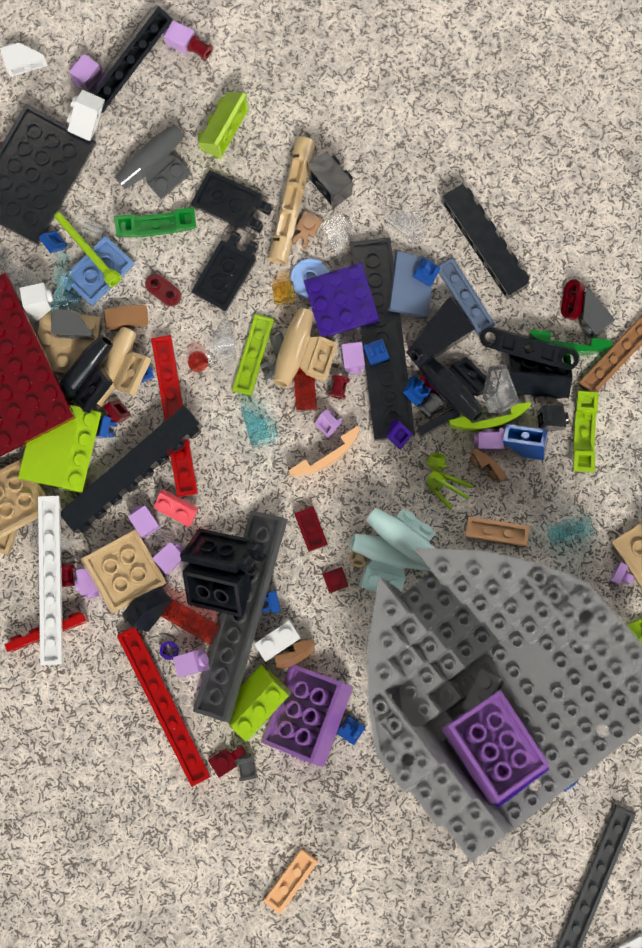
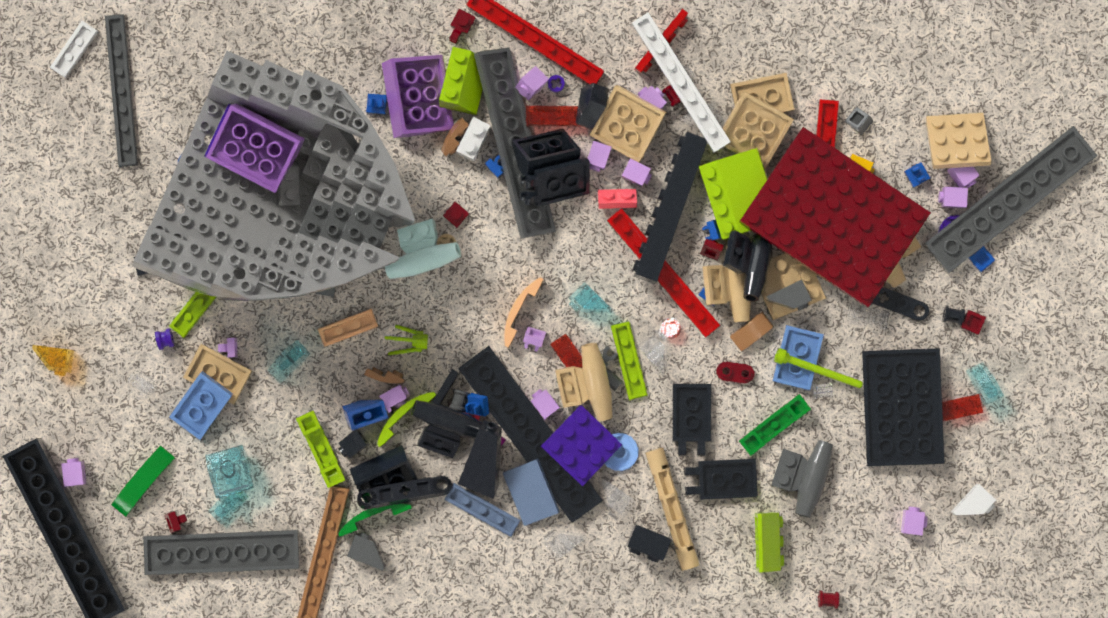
camera: 145 degrees right, 5 degrees up
(36, 301) = (830, 300): white slope -> none
(53, 241) = (850, 360): blue tile -> none
(62, 295) = (812, 318): clear light blue slope -> none
(85, 114) = (886, 480): white brick -> none
(130, 55) = (882, 552): black brick -> none
(178, 36) = (852, 598): lavender brick -> none
(246, 768) = (441, 27): dark grey bush -> none
(283, 292) = (633, 426): clear yellow plate -> none
(307, 227) = (646, 496): medium nougat plate -> none
(311, 529) = (498, 243): dark red plate -> none
(339, 387) = (542, 372): dark red bush -> none
(376, 352) = (527, 418): blue tile -> none
(398, 434) = (471, 359): dark purple slope -> none
(403, 532) = (417, 280): light aqua plate -> none
(426, 272) = (524, 509): blue tile -> none
(436, 461) = (428, 356): lime plate -> none
(485, 241) = (490, 564): black brick -> none
(499, 390) = (409, 441): clear slope -> none
(572, 299) = (391, 556): dark red plate -> none

